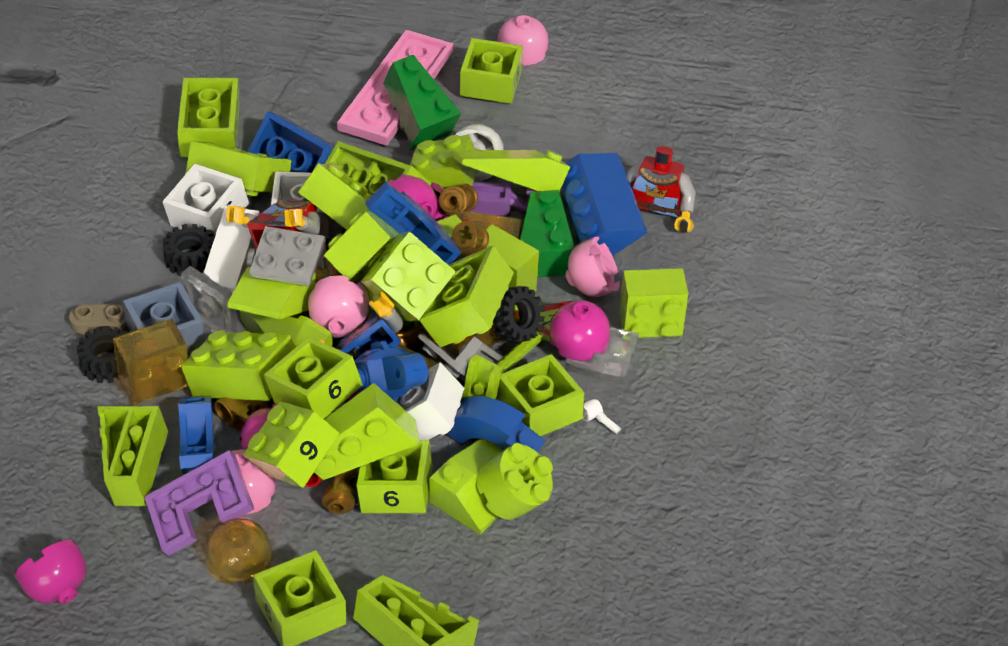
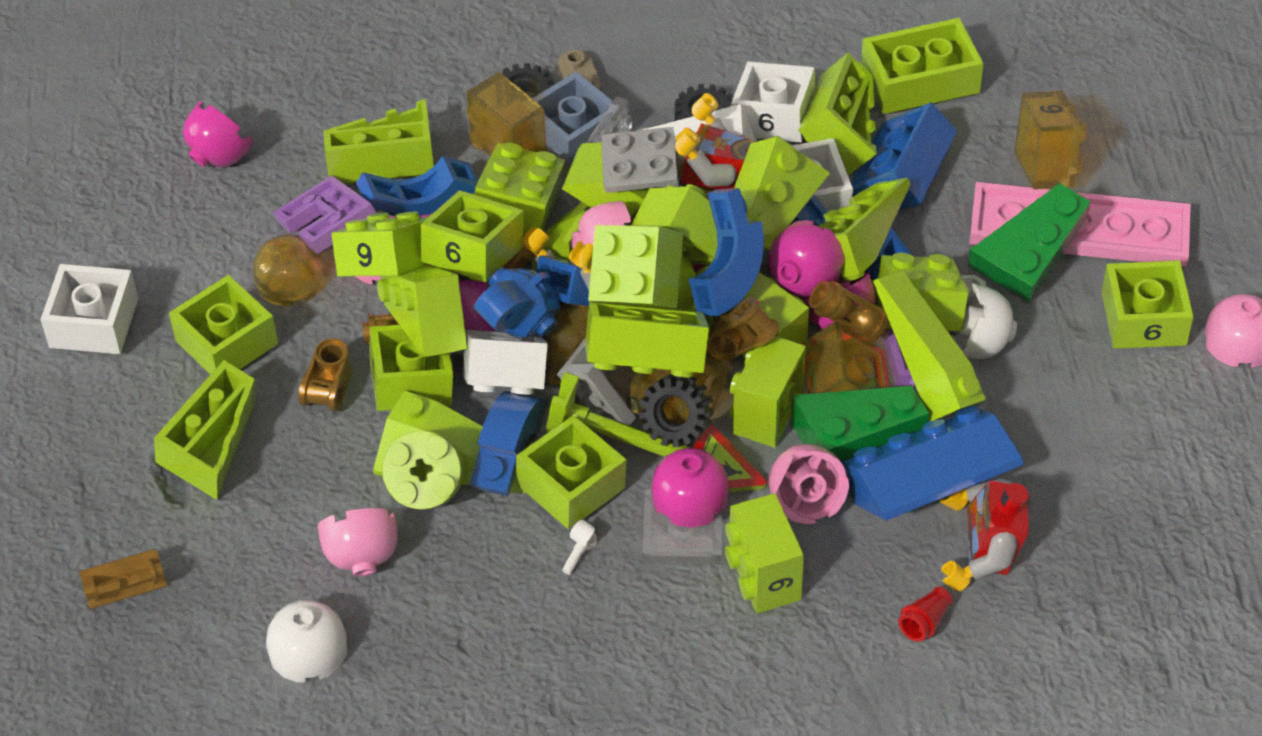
camera: 80 degrees right, 5 degrees up
(328, 68) = (1049, 139): none -> clear yellow brick
(377, 539) = (327, 375): none -> pearl gold piece
(566, 541) = (360, 540): none -> bright pink cylinder
(647, 600) = (306, 641): none -> white cylinder
(716, 246) = (923, 616): none -> red cone

